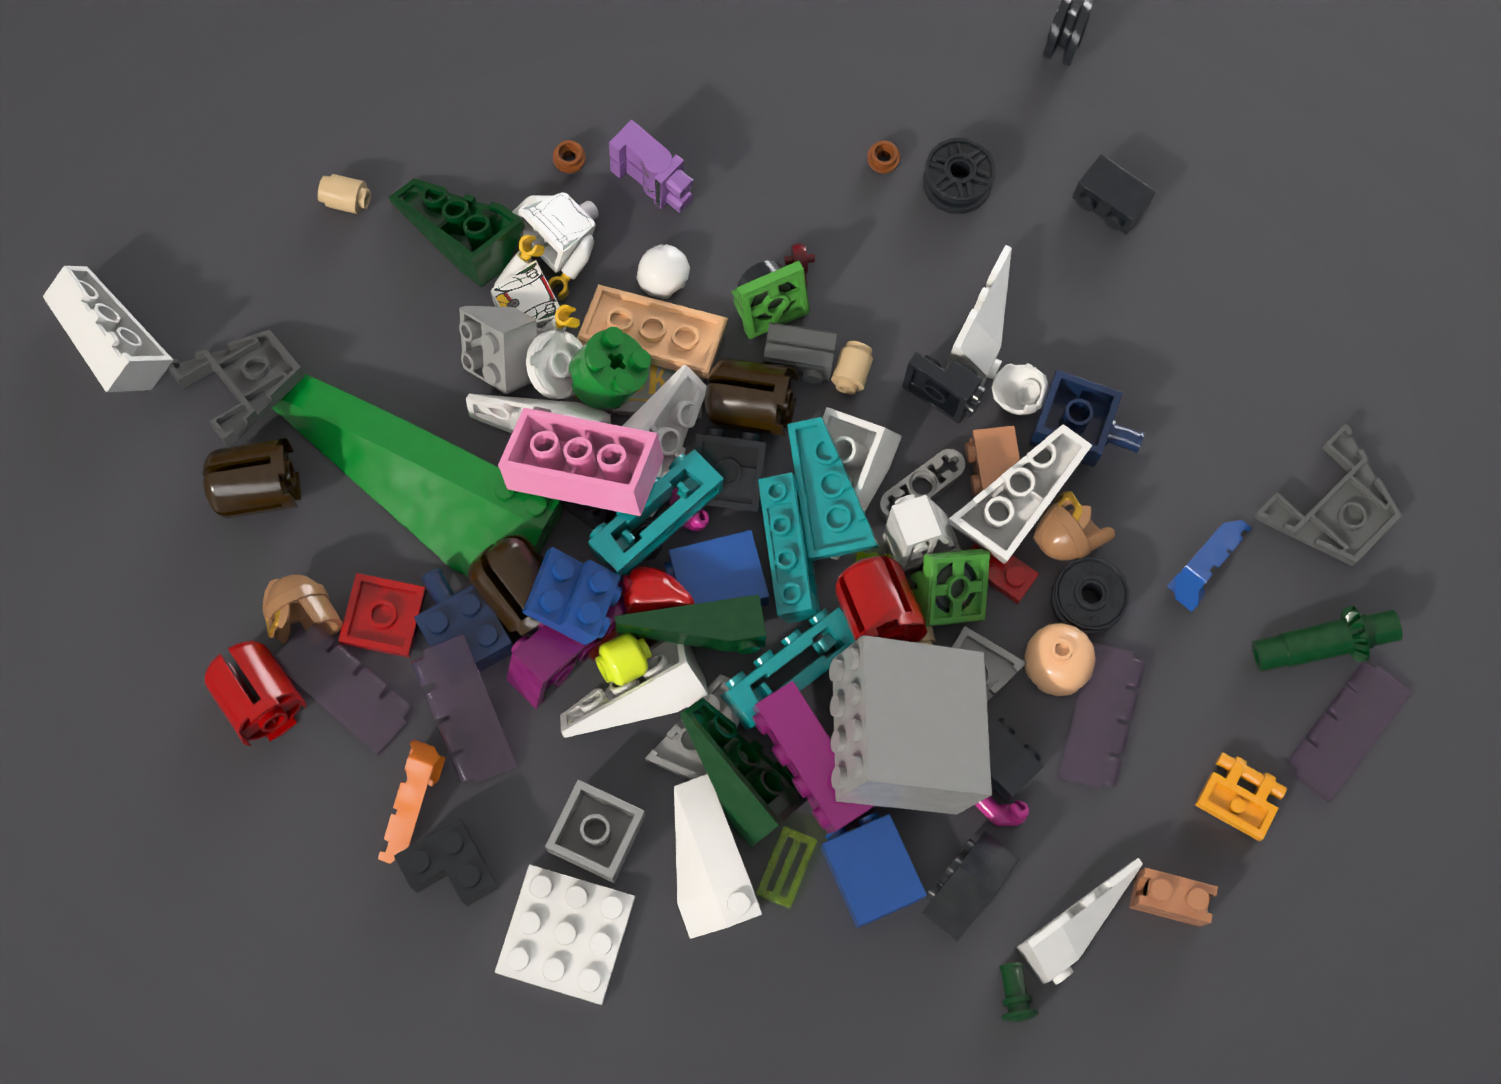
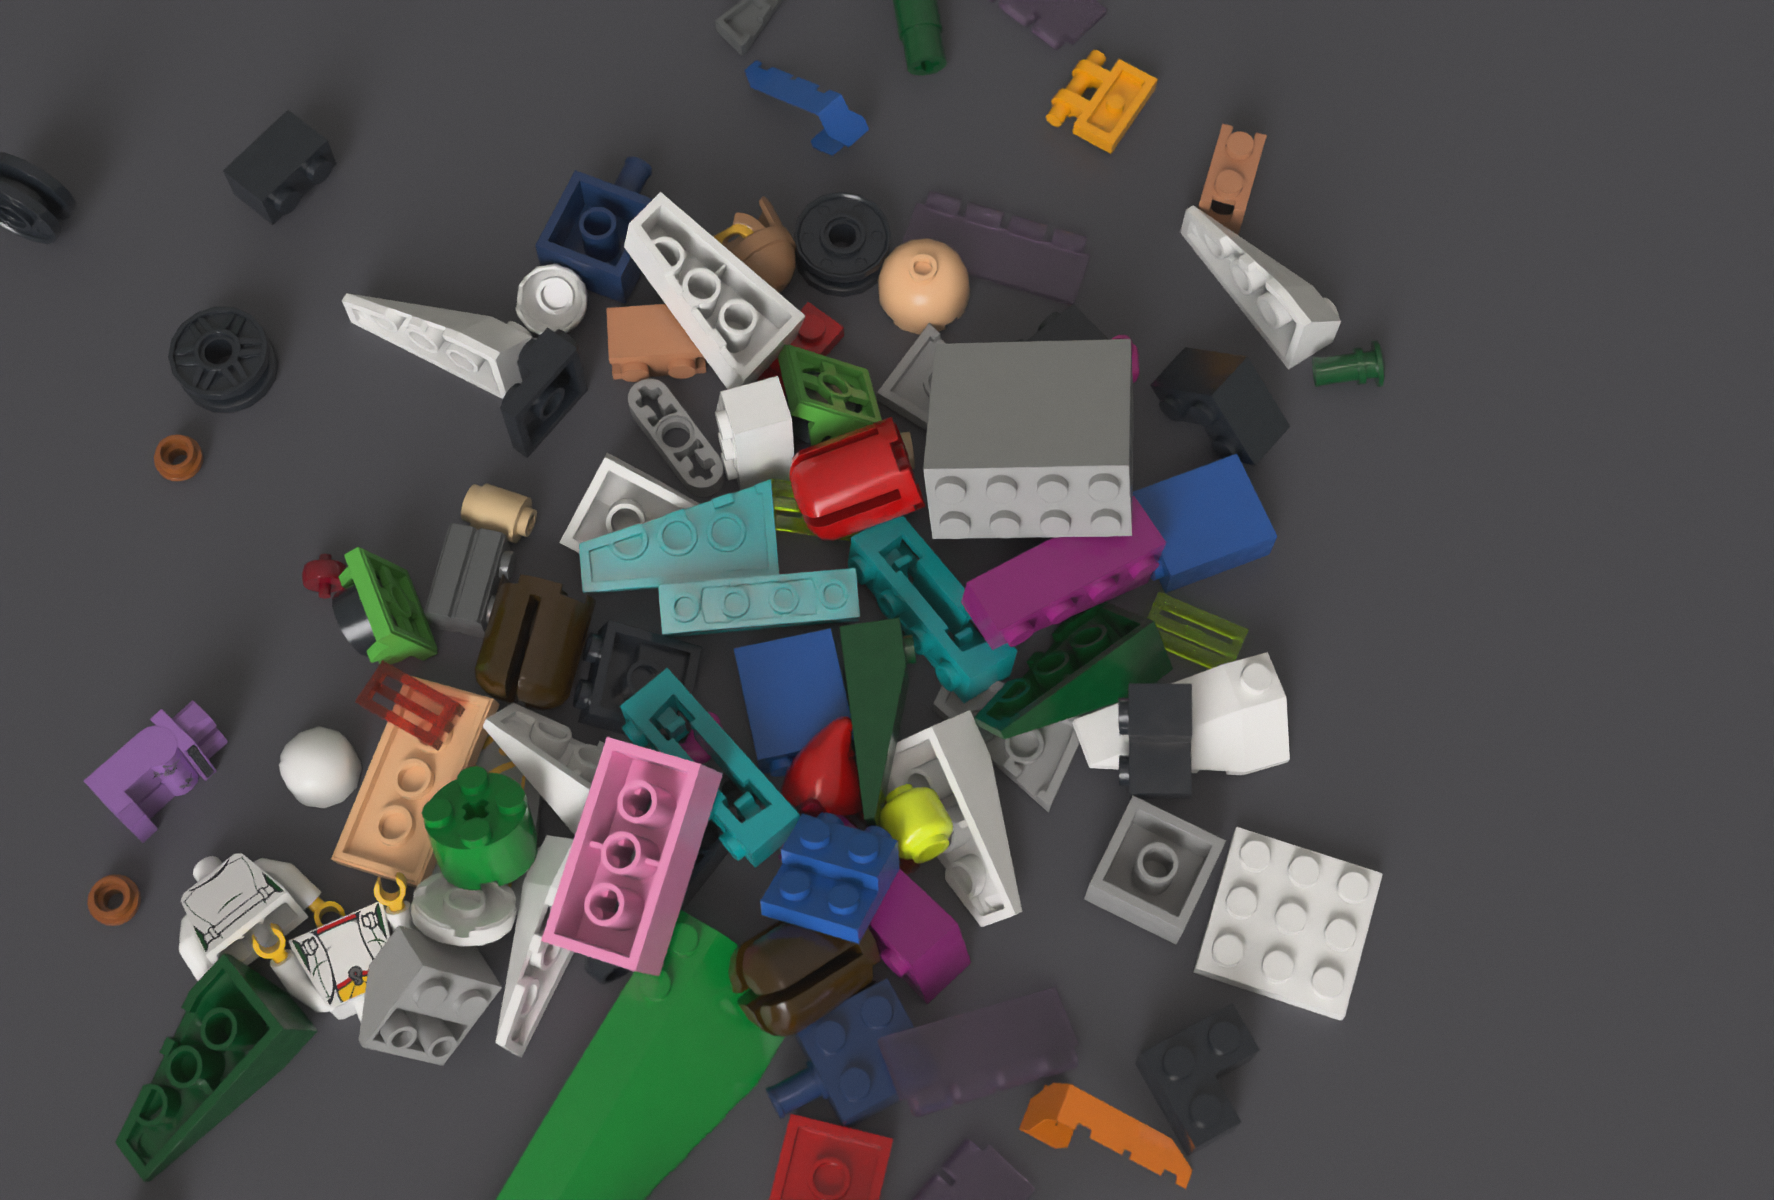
camera: 85 degrees left, 5 degrees down
(682, 825) = (1159, 740): none -> black brick
(690, 340) = (440, 723): none -> clear red tile

